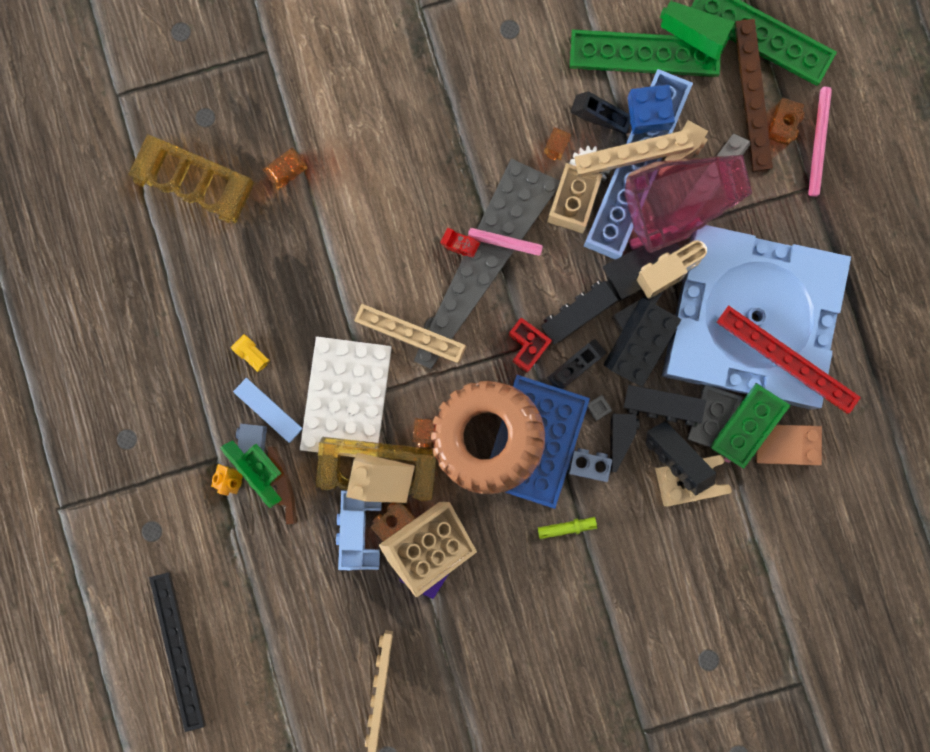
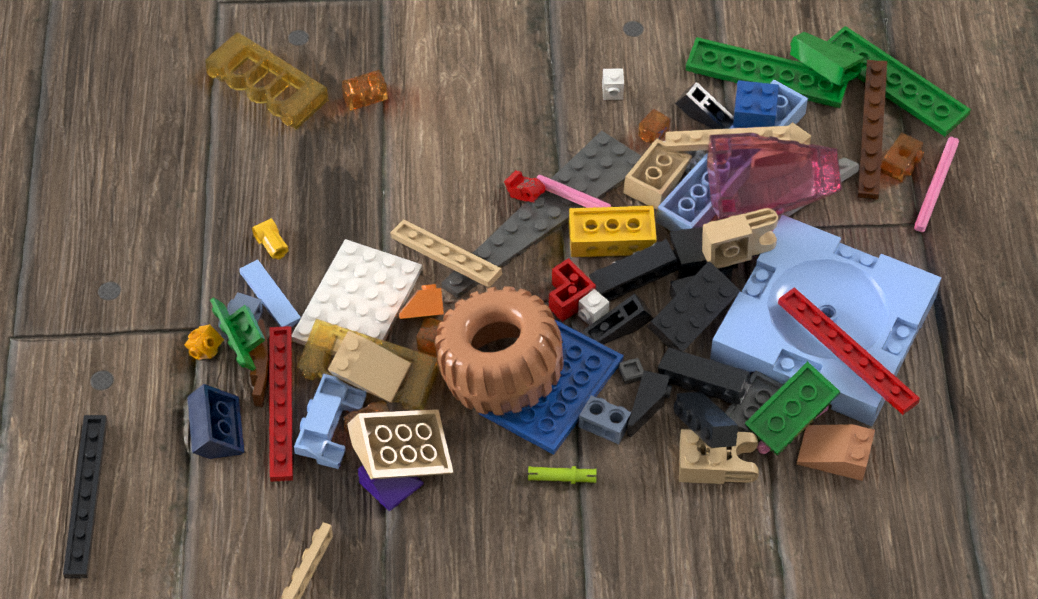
camera: 10 degrees right, 30 degrees down
(263, 555) = (215, 423): none -> dark blue slope
(311, 519) = (280, 404): none -> red plate
(406, 402) = (424, 303): none -> orange slope
(509, 104) = (613, 84): none -> white brick
(552, 357) = (592, 307): none -> white brick
(553, 259) = (611, 230): none -> yellow brick

